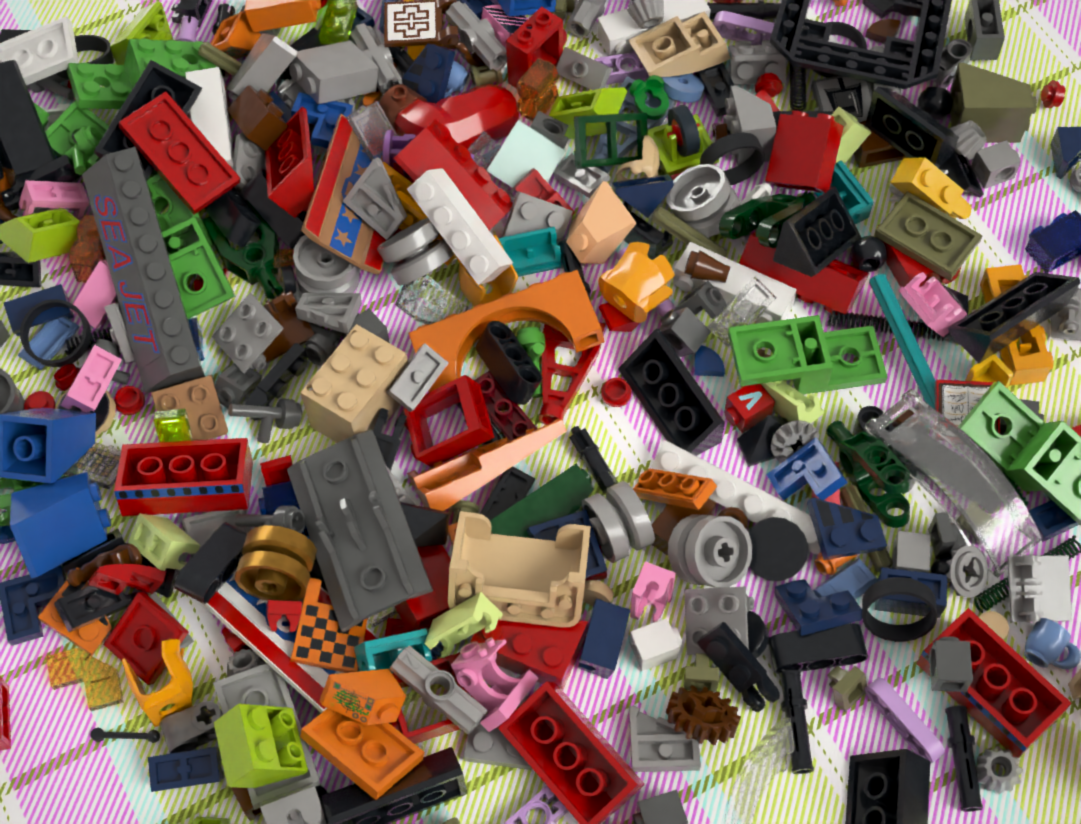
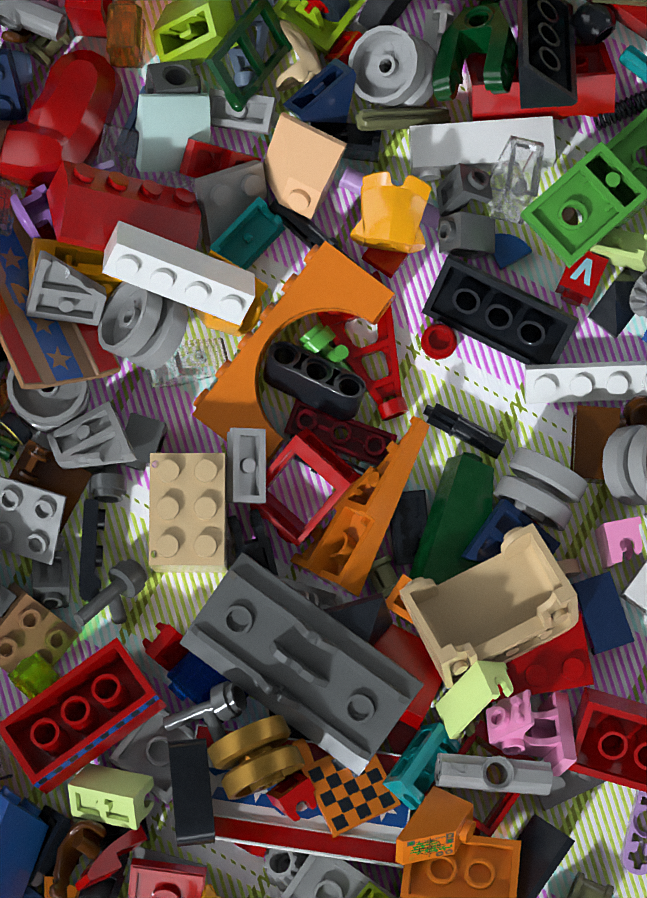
camera: 35 degrees left, 20 degrees up
(674, 488) = (573, 419): orange tile -> none
(706, 267) = (448, 152): reddish brown cone -> none

